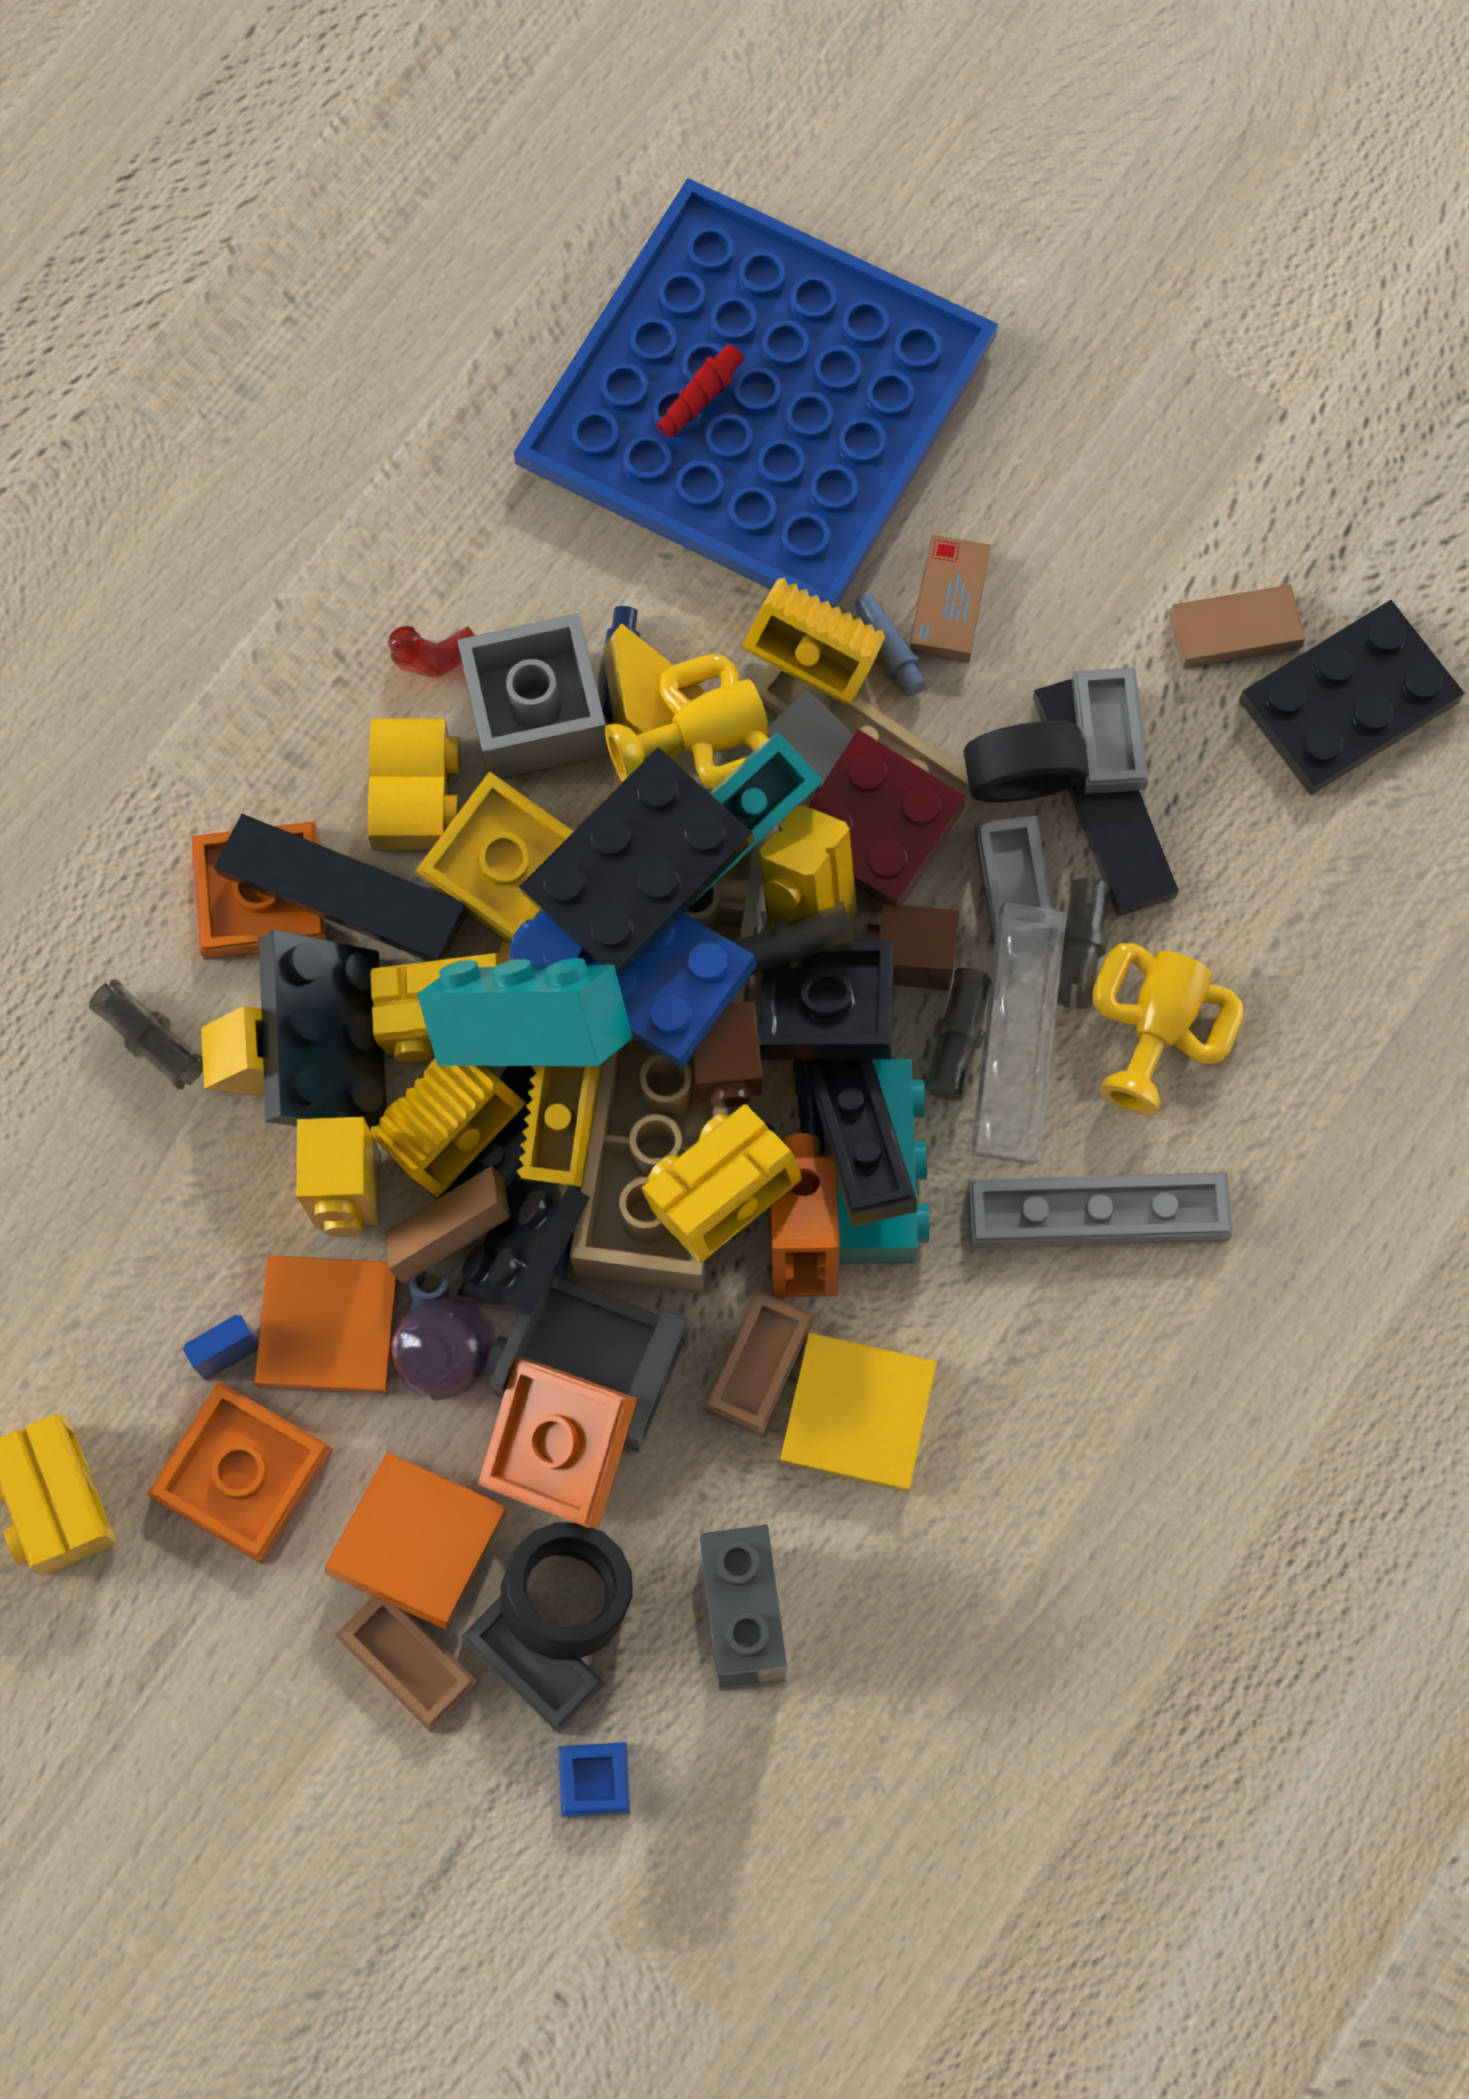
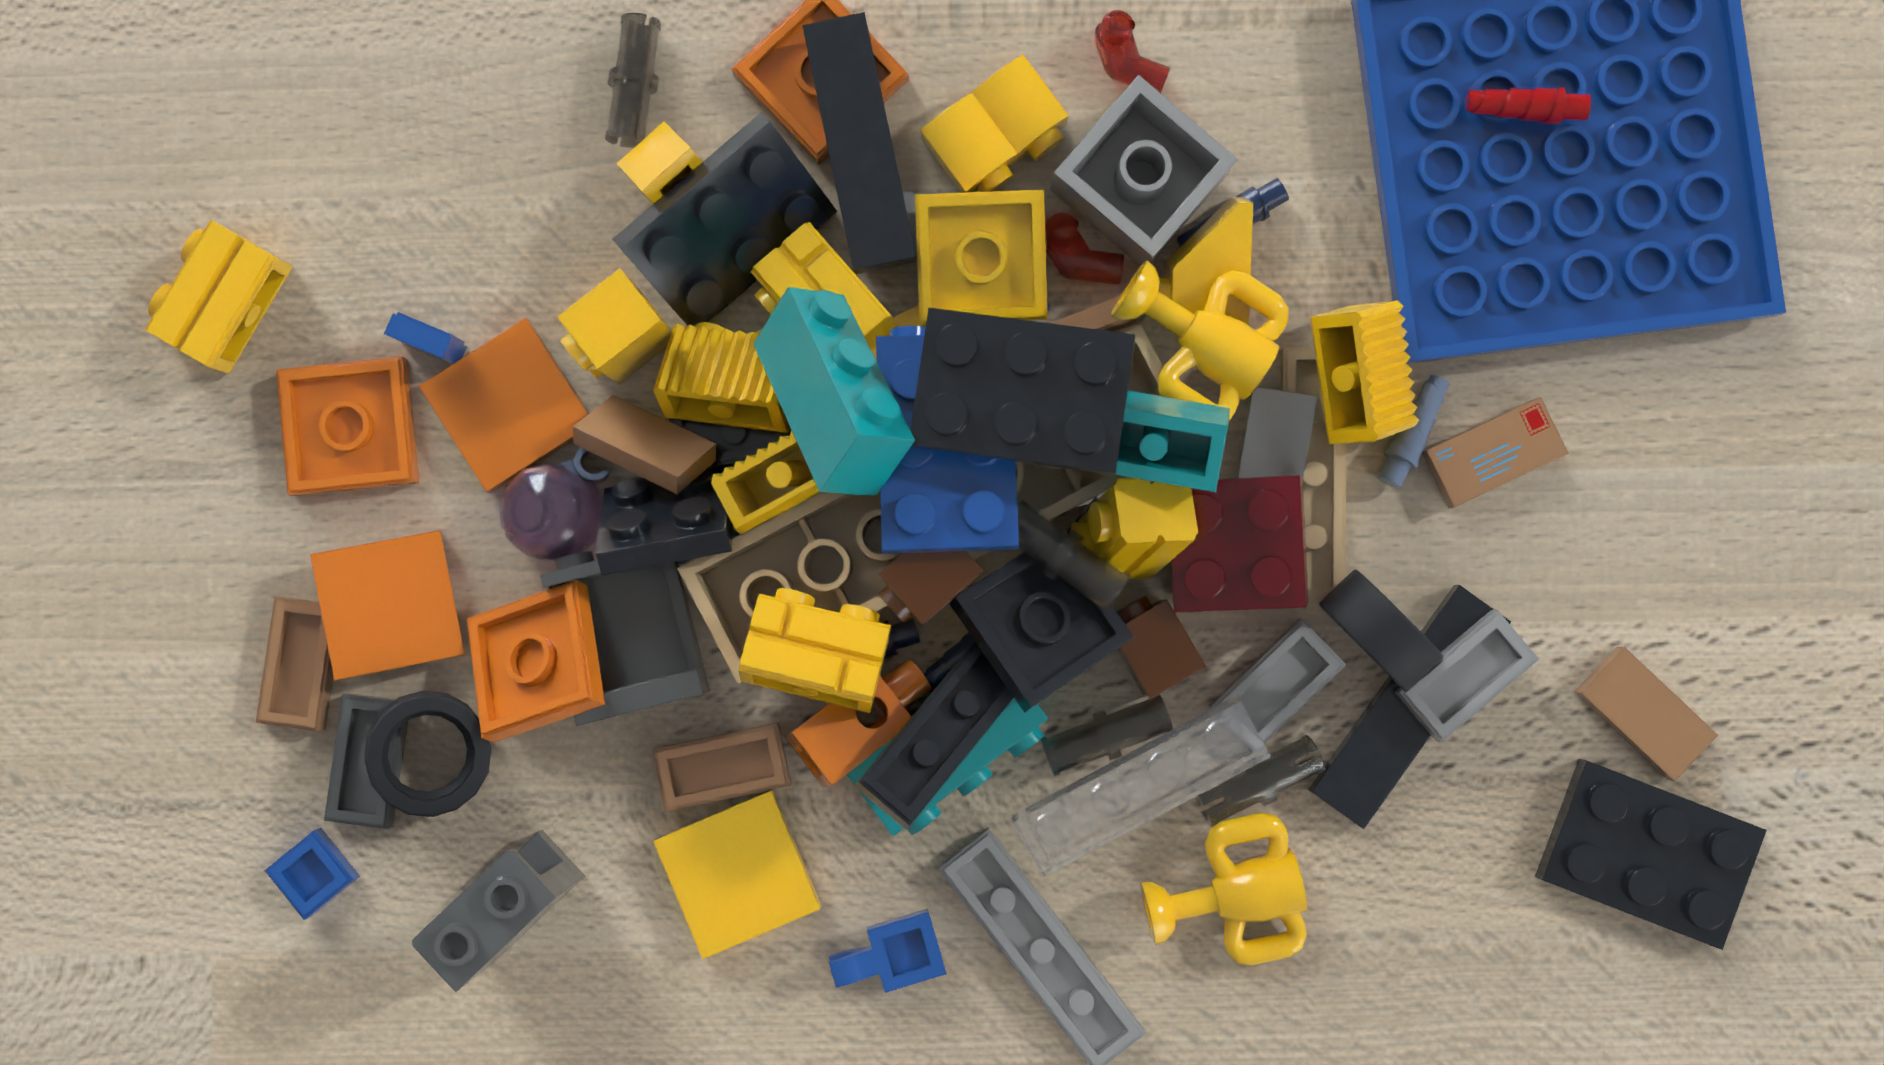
camera: 55 degrees right, 15 degrees up
(562, 798) = (1073, 256): none -> clear red arm
(1019, 1323) = (900, 951): none -> blue plate

